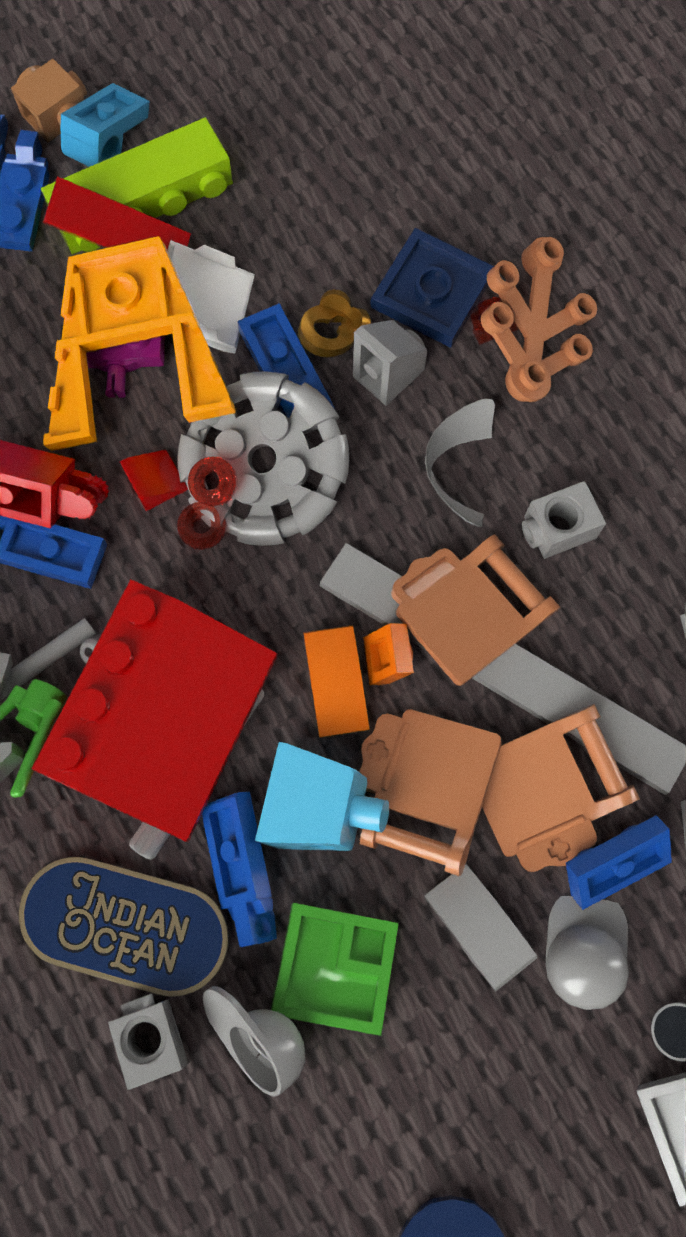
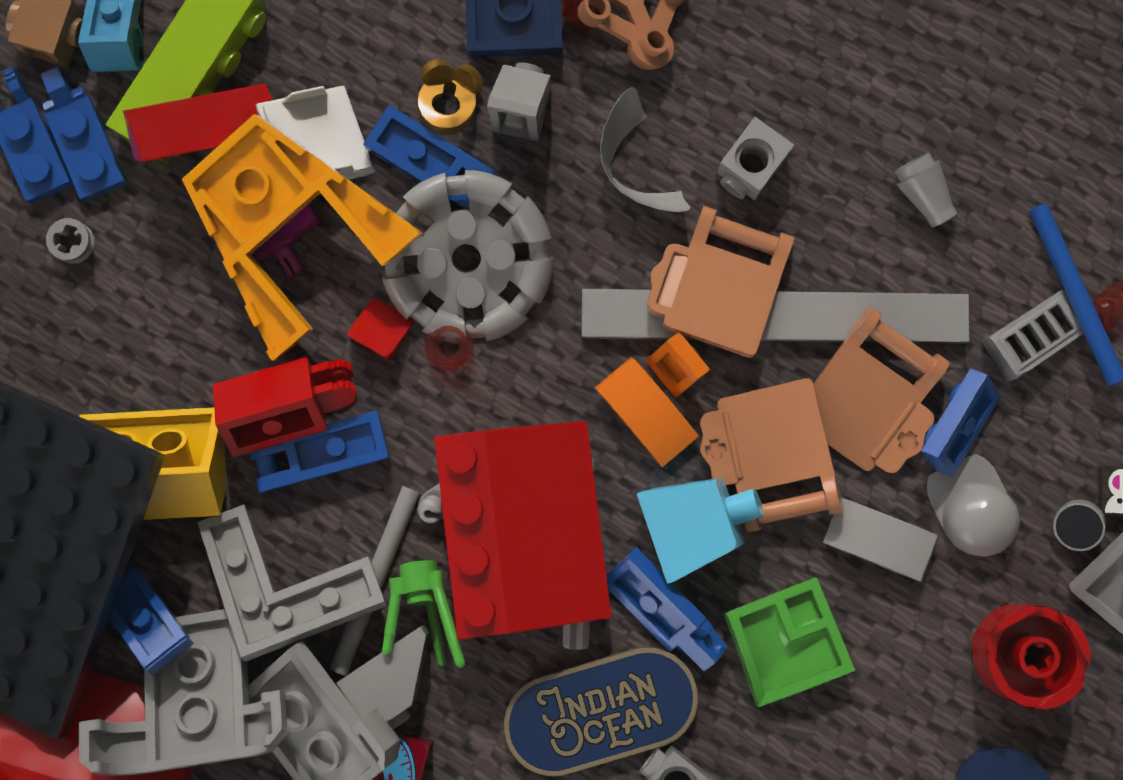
camera: 25 degrees left, 10 degrees up
(227, 481) = (443, 291): clear red plate -> none
(257, 1033) = (774, 721): light grey cap -> none
(584, 1153) = (1056, 663): none -> red brick

